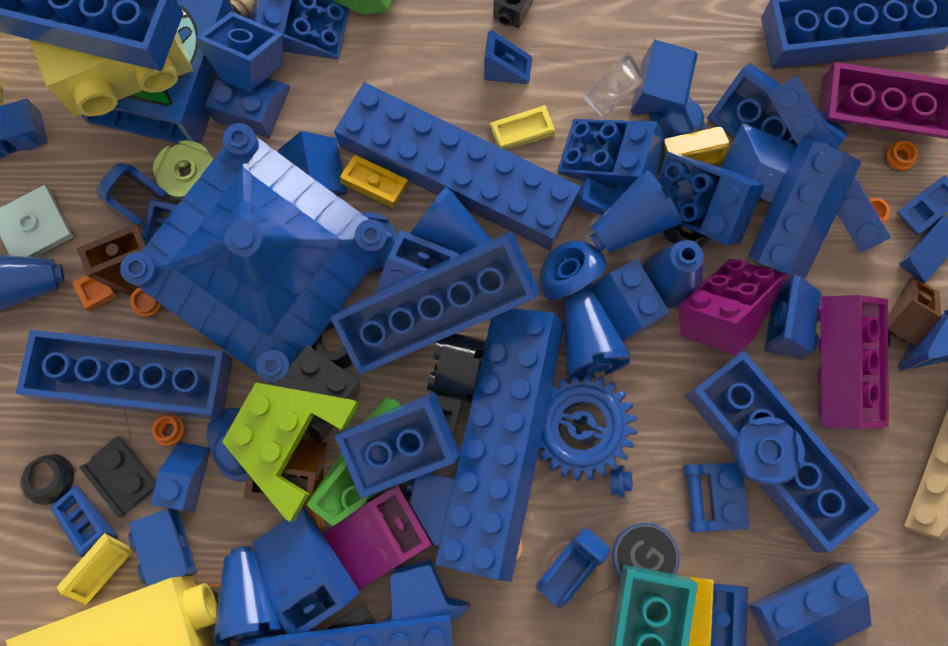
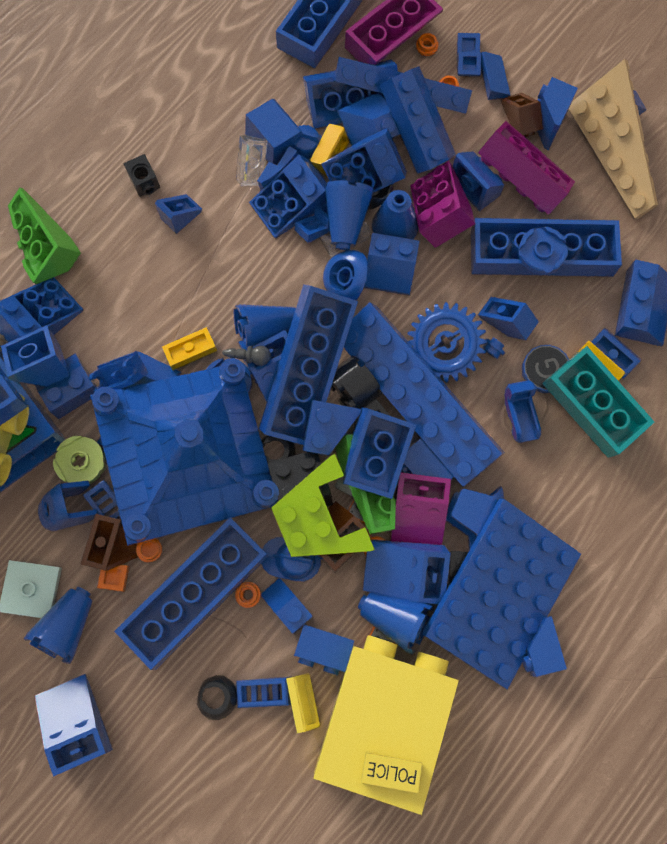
camera: 55 degrees left, 0 degrees up
(119, 476) = (253, 648): black plate -> none
(288, 135) = (120, 372): none -> blue hinge
(387, 373) = (327, 426): none -> blue wing
(407, 248) = (259, 355): none -> dark grey bar
(443, 155) = (213, 292): blue brick -> none
(522, 128) = (229, 236): light yellow tile -> none
(591, 338) = (397, 296): blue cone -> none
(620, 111) = (273, 170): none -> blue slope
(668, 473) = (509, 317): none -> blue slope
(726, 497) = (546, 298): blue plate -> none

